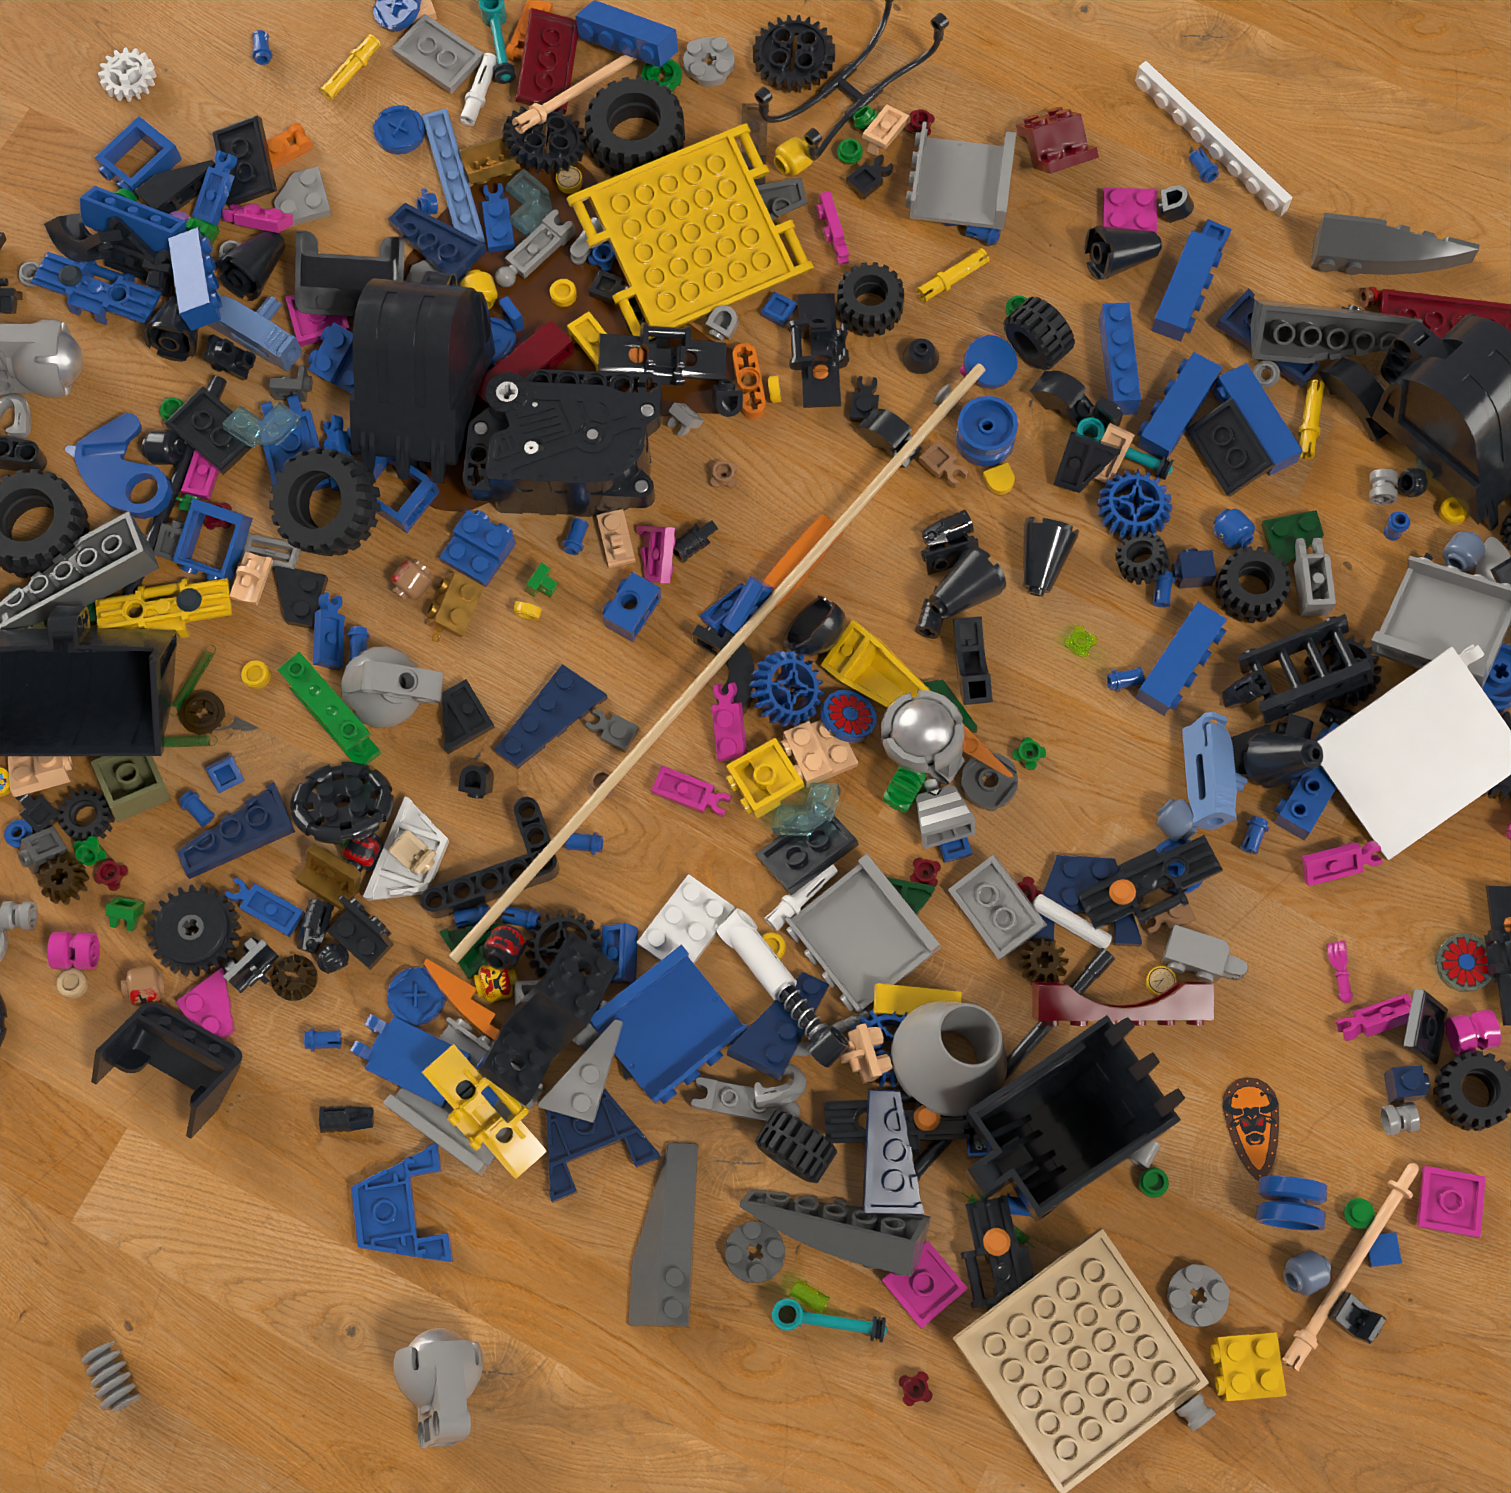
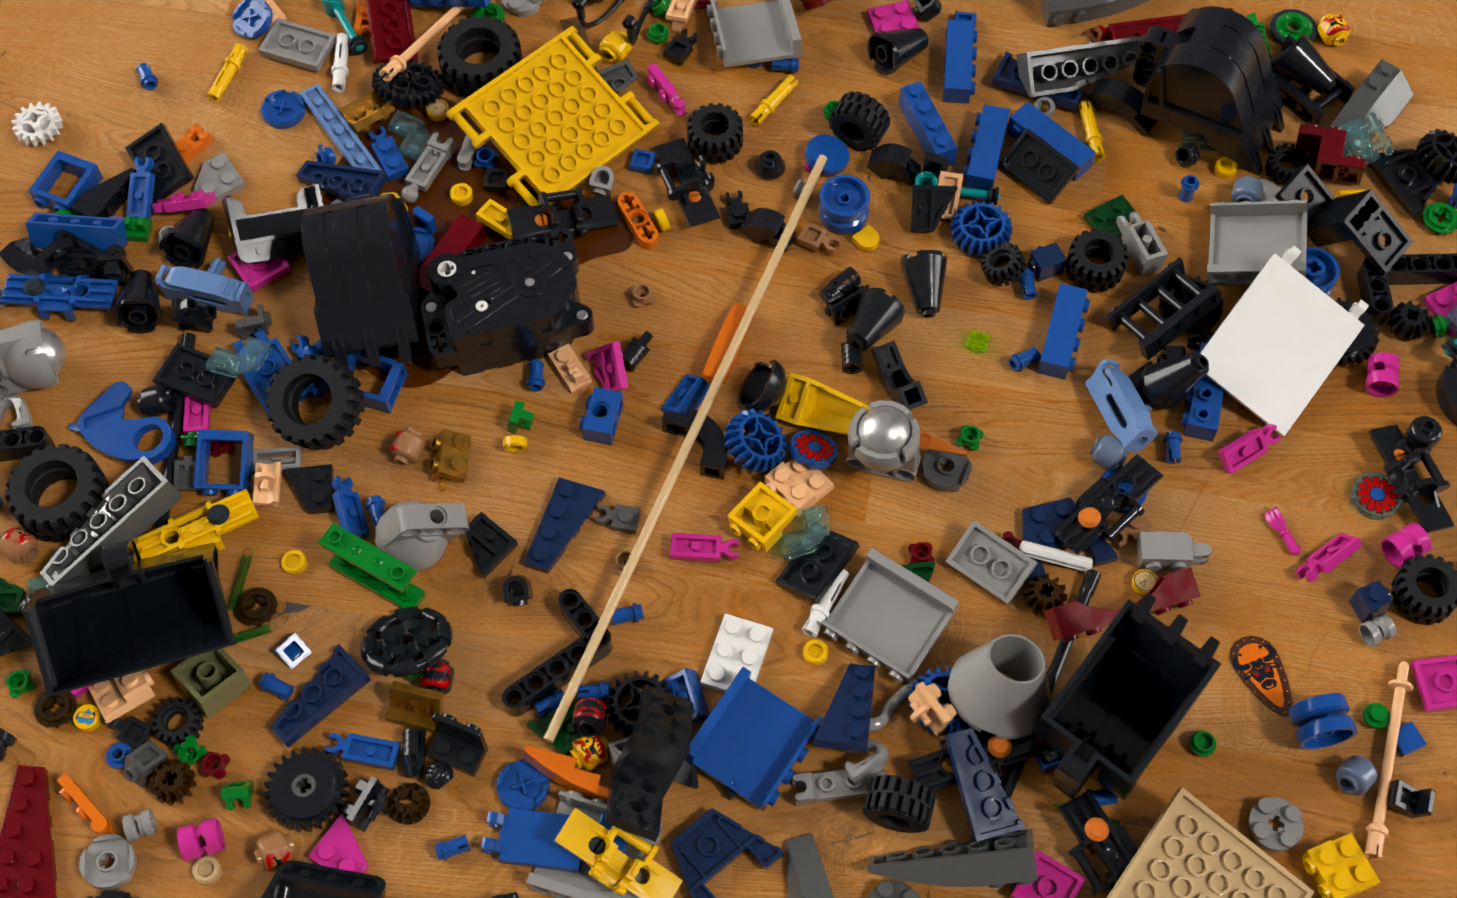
camera: 20 degrees left, 10 degrees down
(169, 407) = (152, 369): green plate -> none
(195, 278) = (147, 260): brick -> none
(335, 357) = (290, 291): blue plate -> none
(390, 877) = (478, 671): white wing -> none
(412, 853) = (483, 664): tan bracket -> none
(478, 547) = (456, 405): blue plate -> none
(582, 1086) = (697, 811): light grey wing -> none
(686, 416) = (595, 259): light grey tile -> none
(727, 397) = (626, 235): black plate -> none
(728, 724) = (717, 483): dark pink plate -> none
(741, 933) = (837, 675): piece -> none
(749, 600) = (699, 384): blue brick -> none
(903, 789) = (880, 490): green gear -> none
(906, 998) = (937, 658): yellow tile -> none
(942, 815) = (919, 503): light grey torso -> none
(955, 850) = (935, 526): blue tile -> none
(1146, 1155) = (1187, 725): light grey hinge -> none
(1233, 529) = (1065, 224): blue head -> none
(1246, 689) = (1123, 338): black hinge -> none
(1383, 487) = (1166, 163): light grey wheel -> none
(1425, 1027) = (1368, 551): black tile -> none

